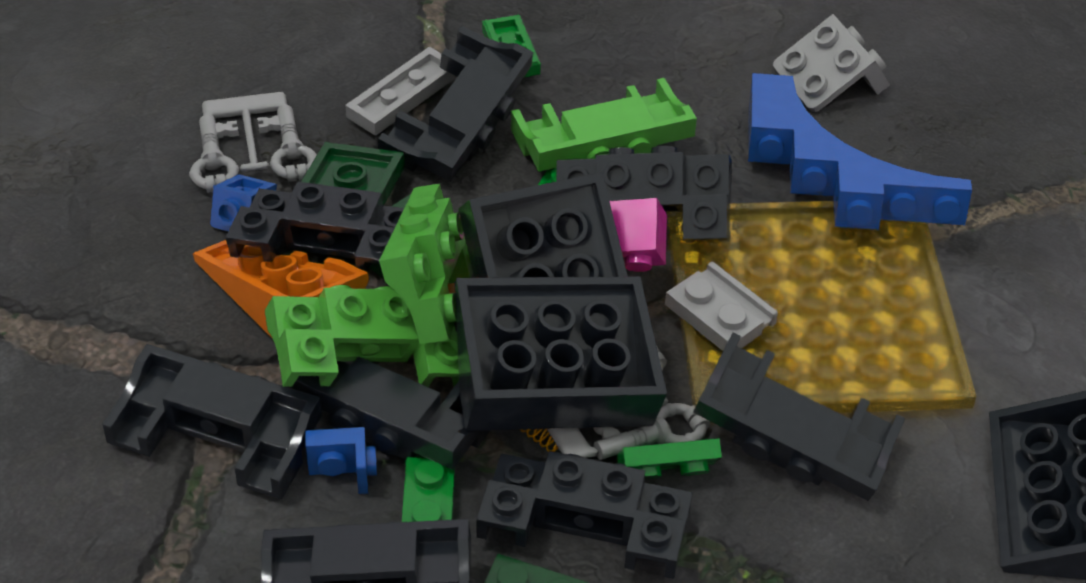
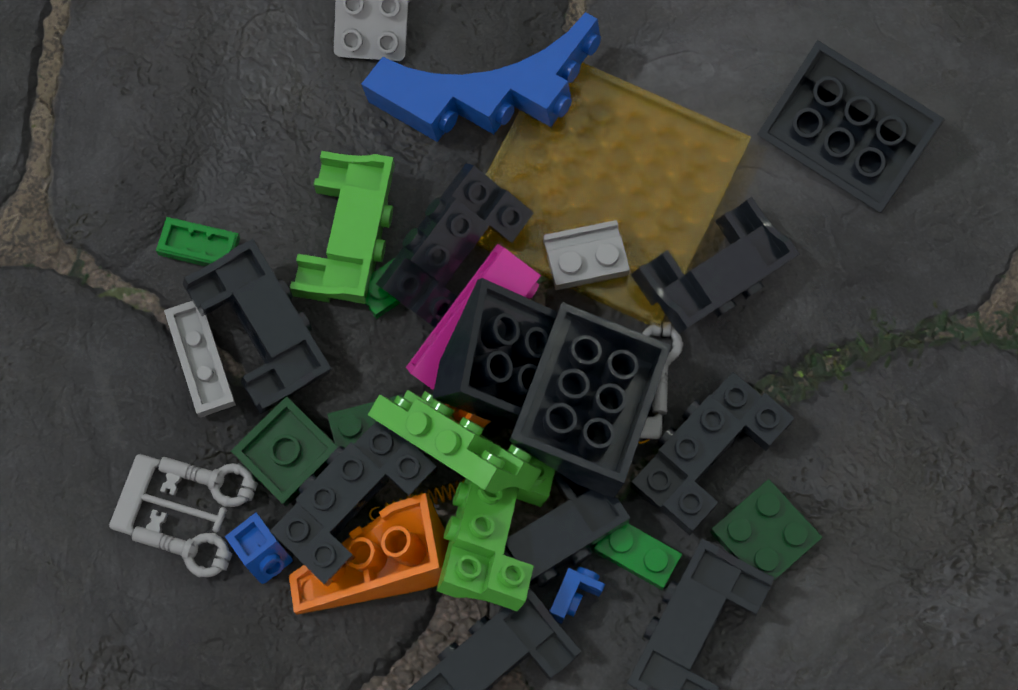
camera: 60 degrees left, 25 degrees up
(689, 456) = (693, 368): green plate -> none

